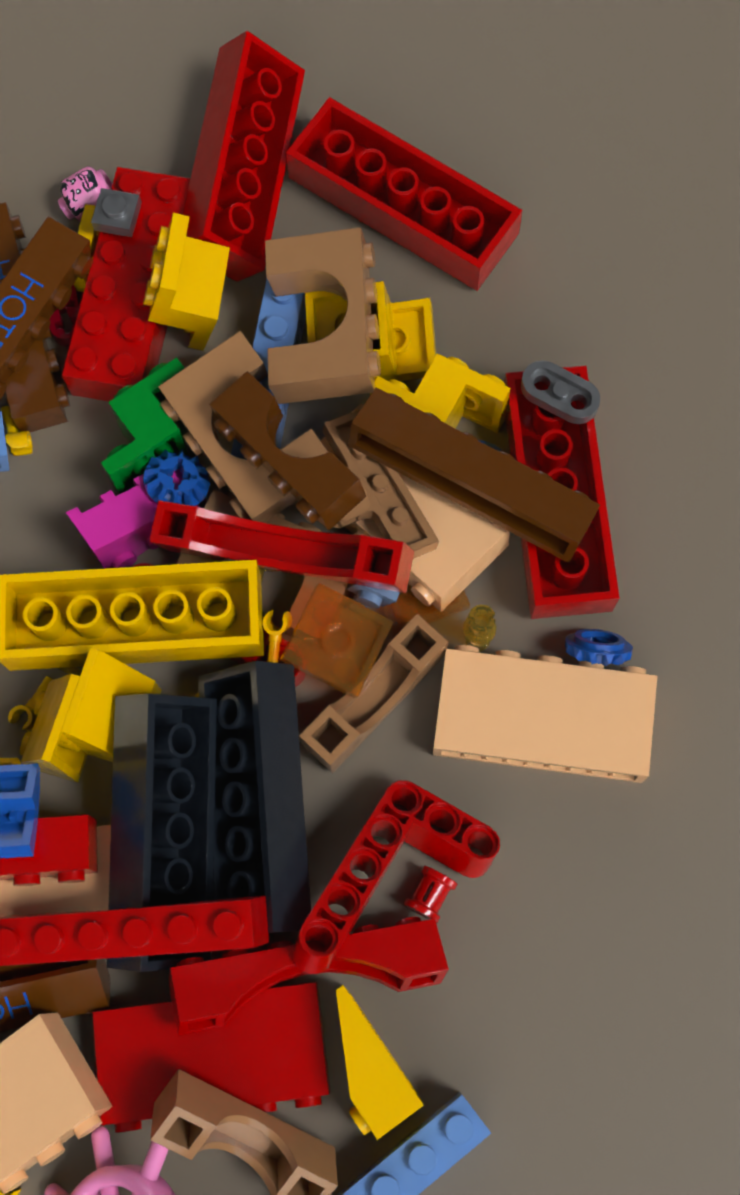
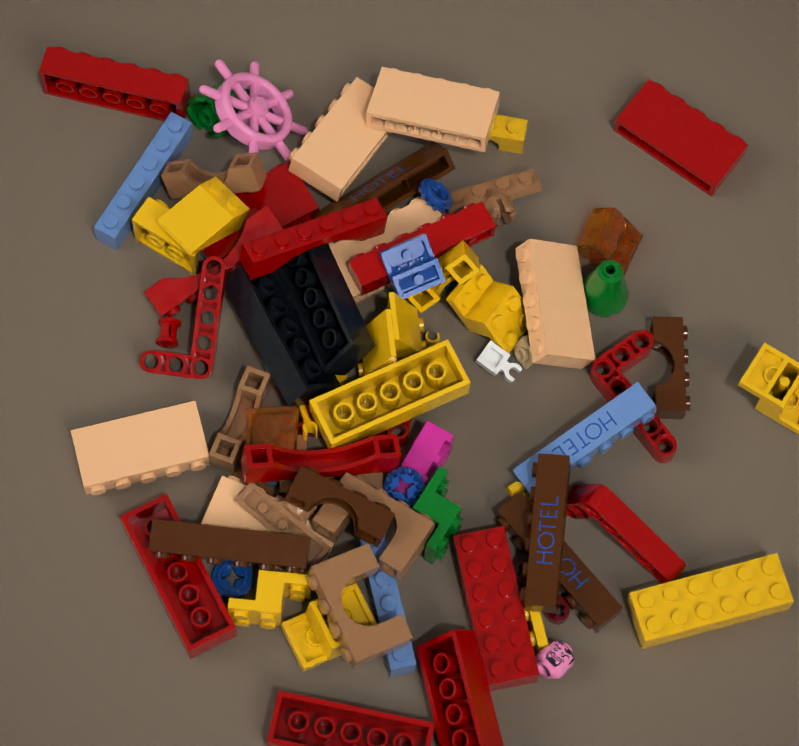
camera: 150 degrees right, 5 degrees down
(116, 212) = (520, 635): flat silver plate -> none
(186, 282) = (453, 602): yellow bracket -> none
(297, 1054) = (204, 216): none -> yellow slope
(479, 627) = (194, 474): clear yellow pin -> none
(562, 390) = (198, 619): flat silver plate -> none
(598, 647) = (119, 503): blue gear -> none

